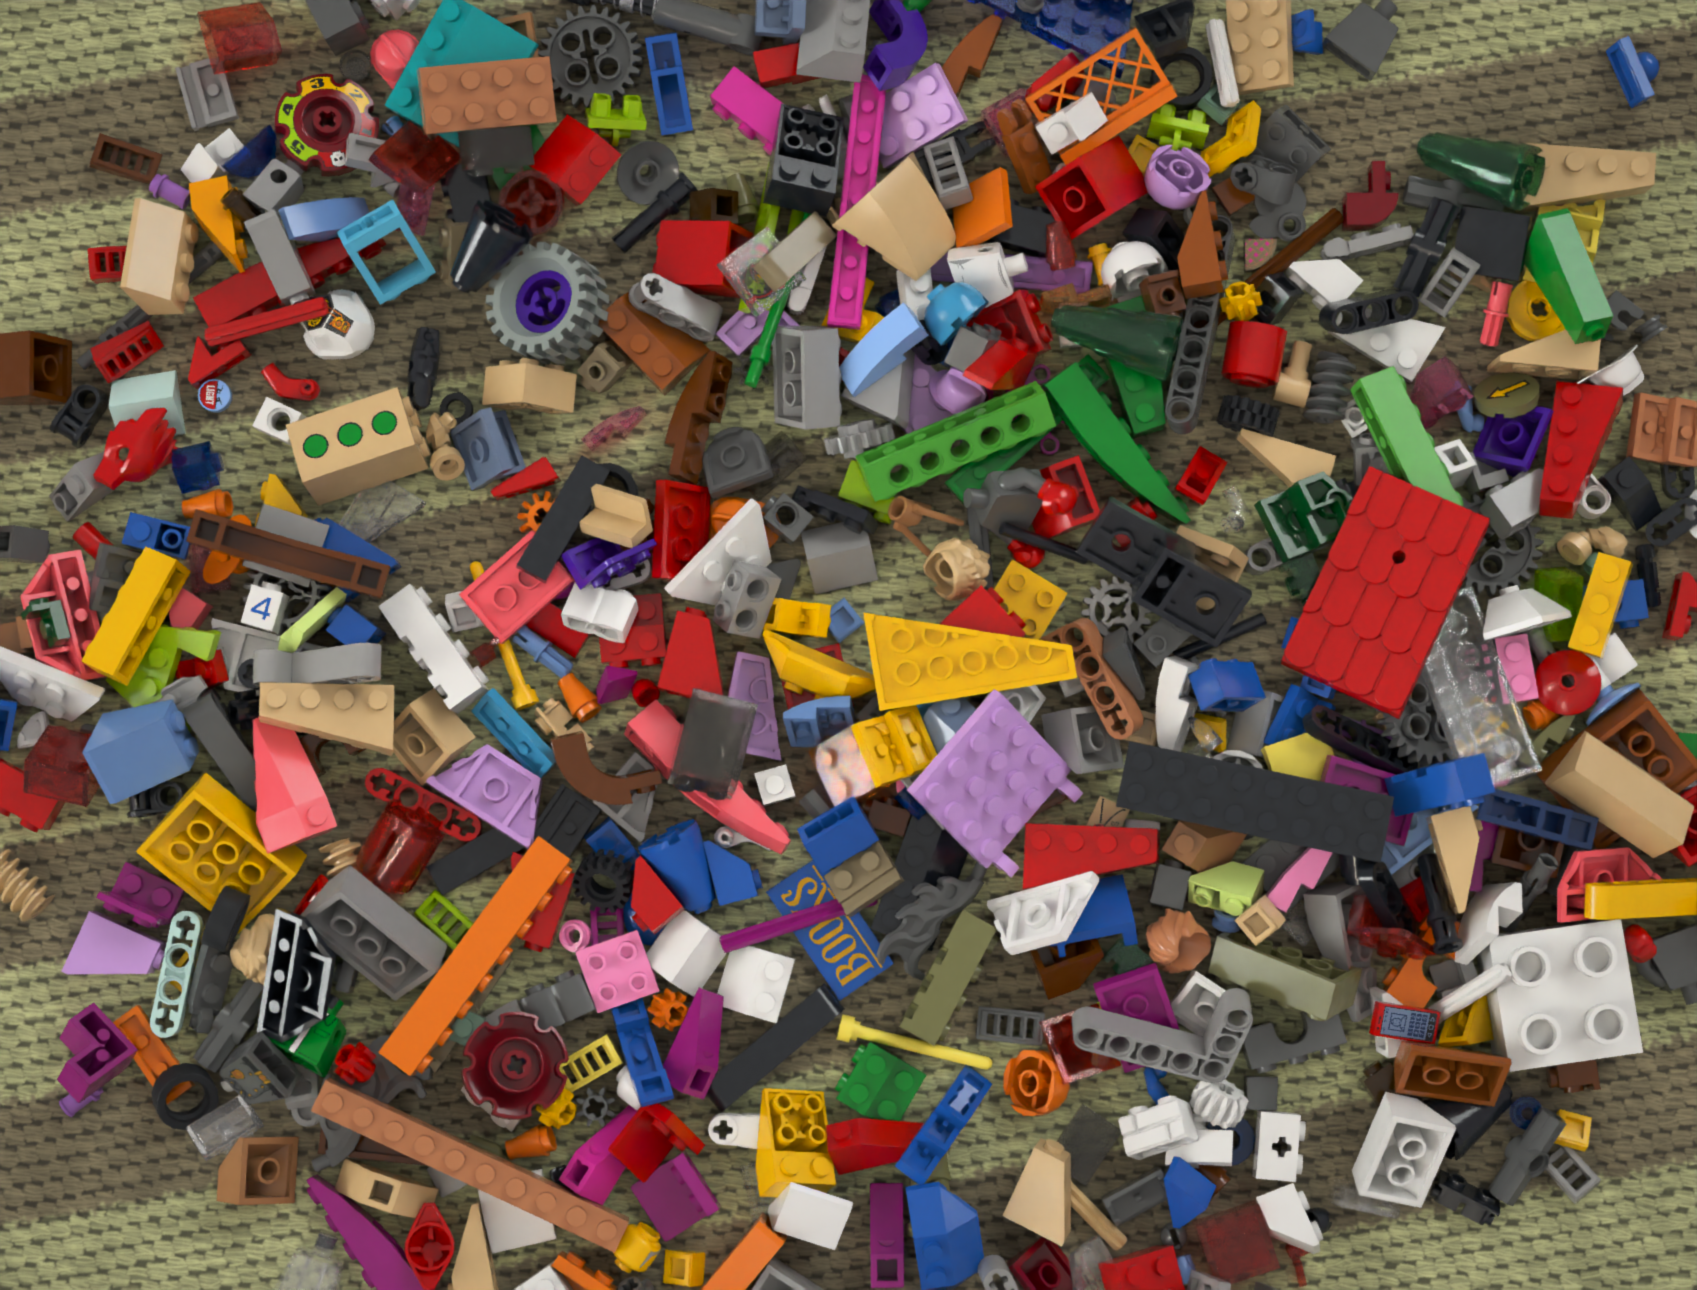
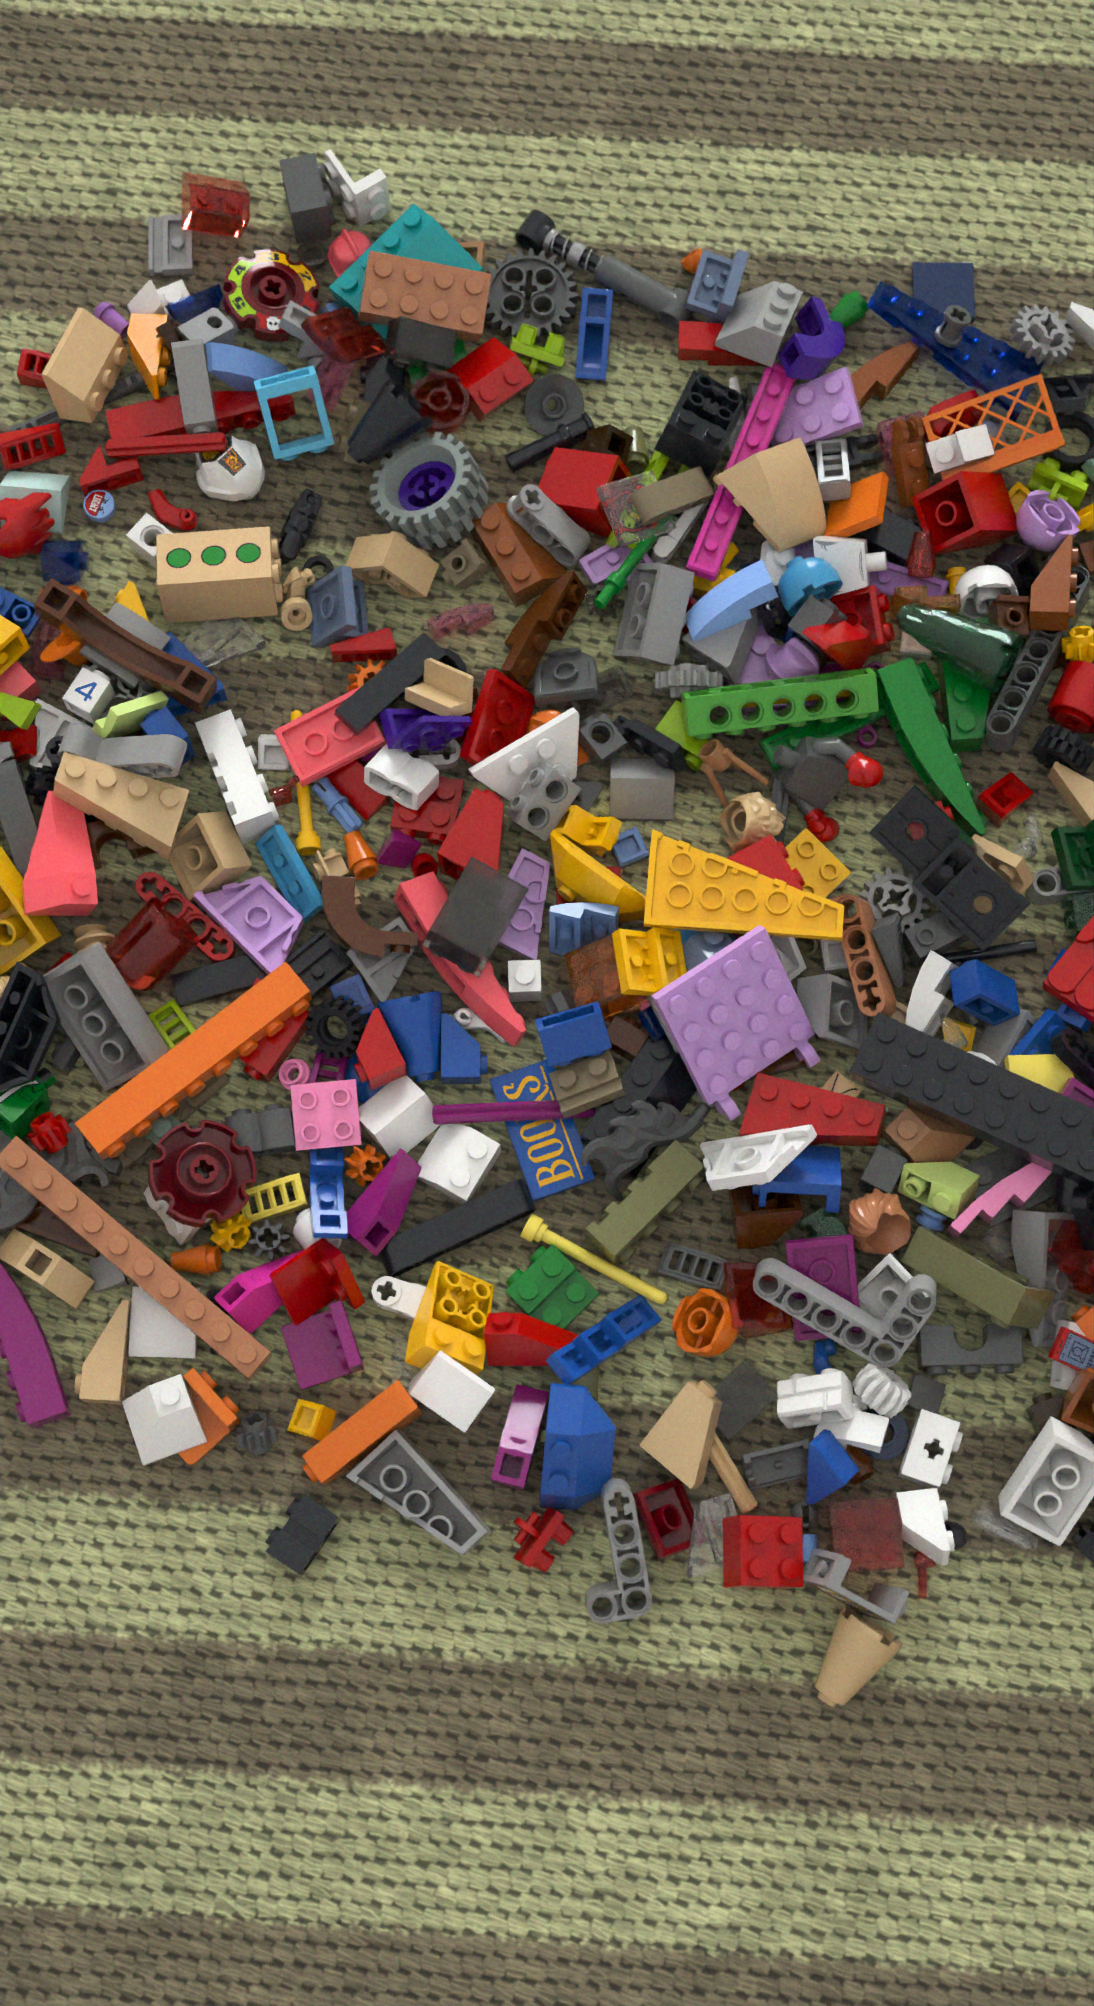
camera: 10 degrees right, 10 degrees down
(109, 167) = (67, 264): reddish brown slope -> none
(429, 1246) = (70, 1329): red hat -> none
(637, 1248) = (271, 1386): yellow head -> none
(748, 106) = (660, 369): dark pink brick -> none
(1041, 542) = (840, 820): black bar -> none
(1086, 508) = (873, 803): red slope -> none
(1260, 920) = (964, 1217): tan slope -> none

